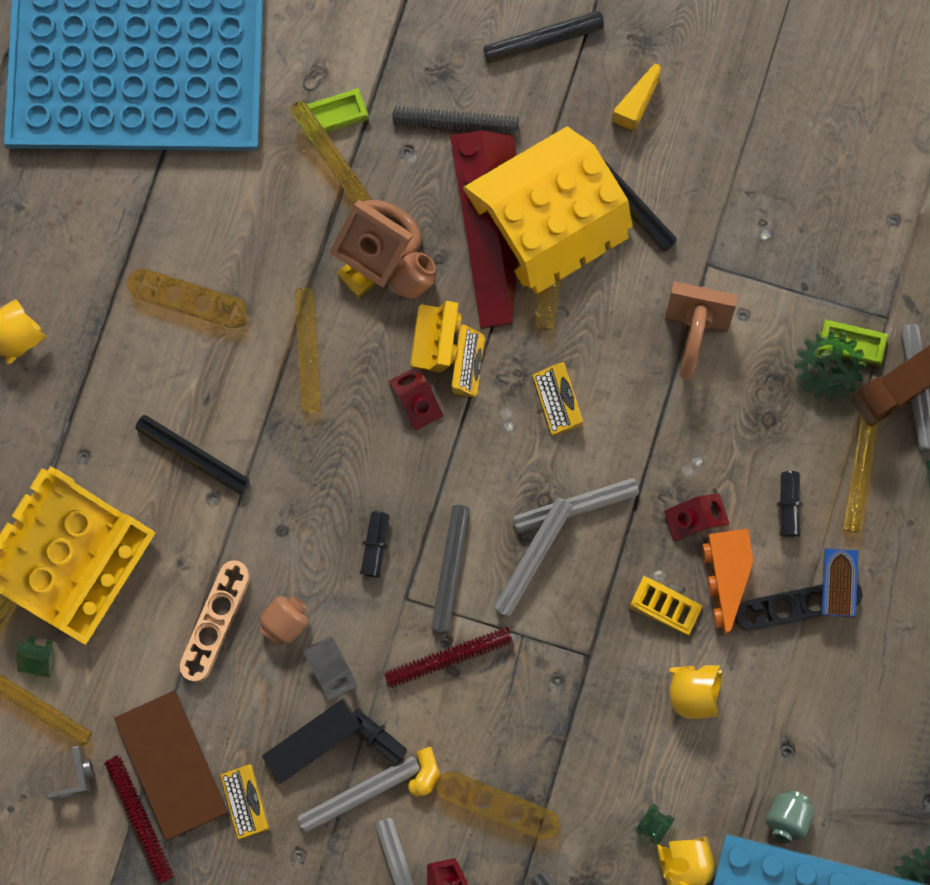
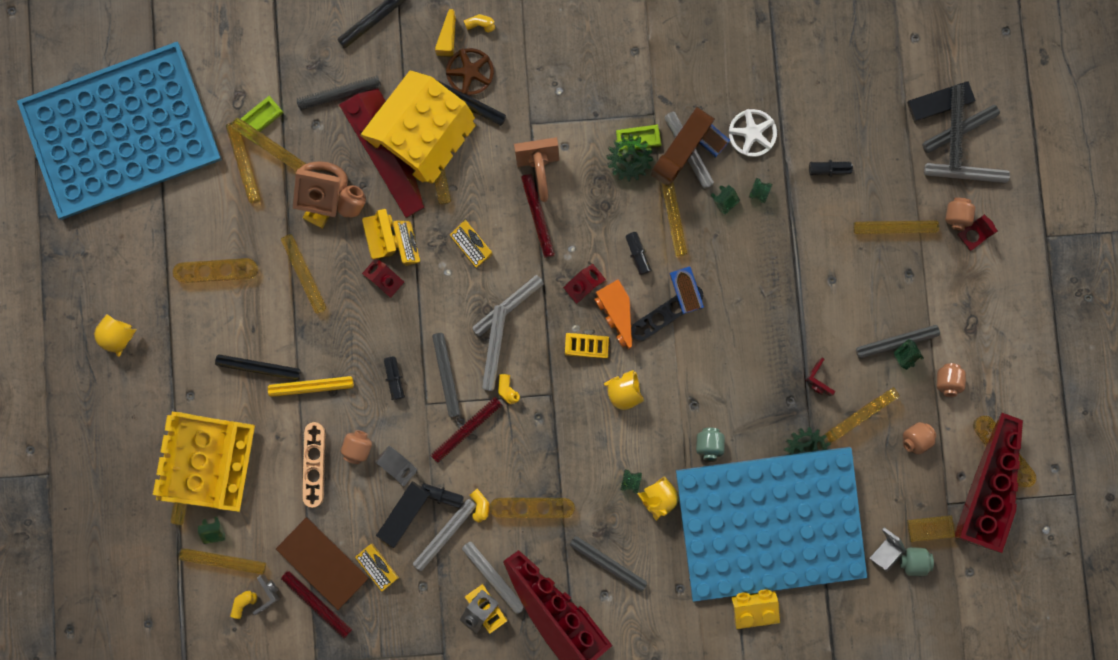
camera: 25 degrees left, 5 degrees up
(37, 772) = (241, 601): none -> yellow arm
(254, 510) = (310, 386): none -> yellow axle
(285, 168) = (243, 164): none -> clear yellow axle
(525, 624) = (506, 391): none -> yellow arm
(650, 159) = (469, 71): none -> reddish brown wheel
(666, 396) = (537, 216): none -> dark red axle
(693, 96) = (480, 20): none -> yellow arm

